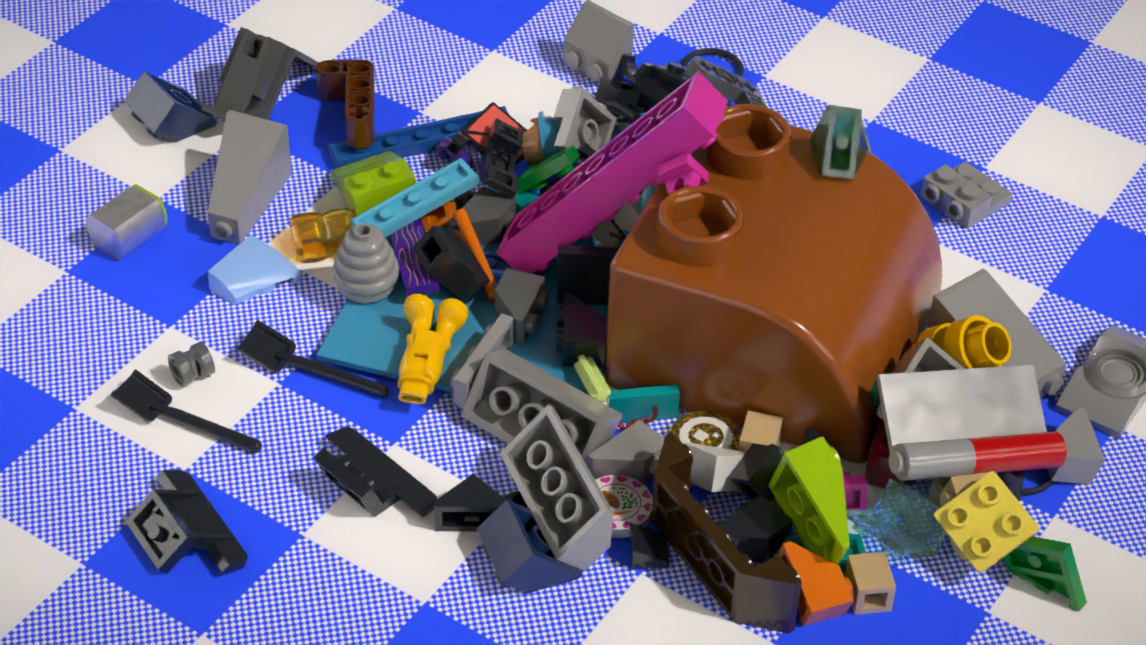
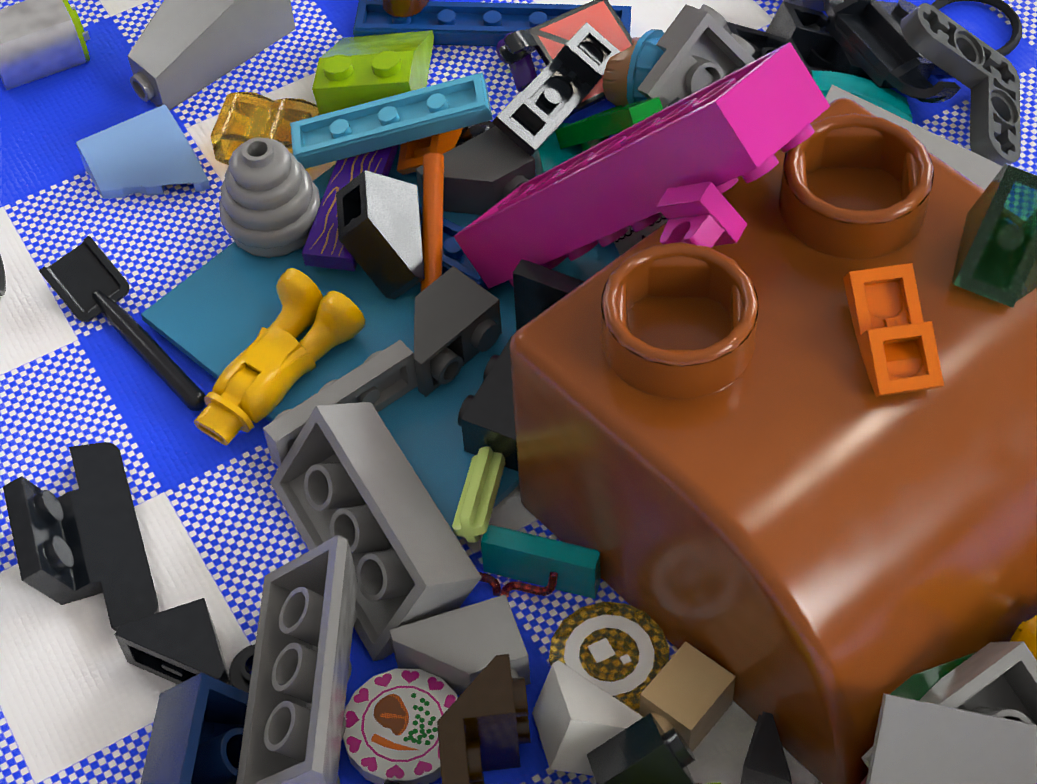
camera: 30 degrees right, 10 degrees up
(806, 207) = (891, 331): none -> orange slope

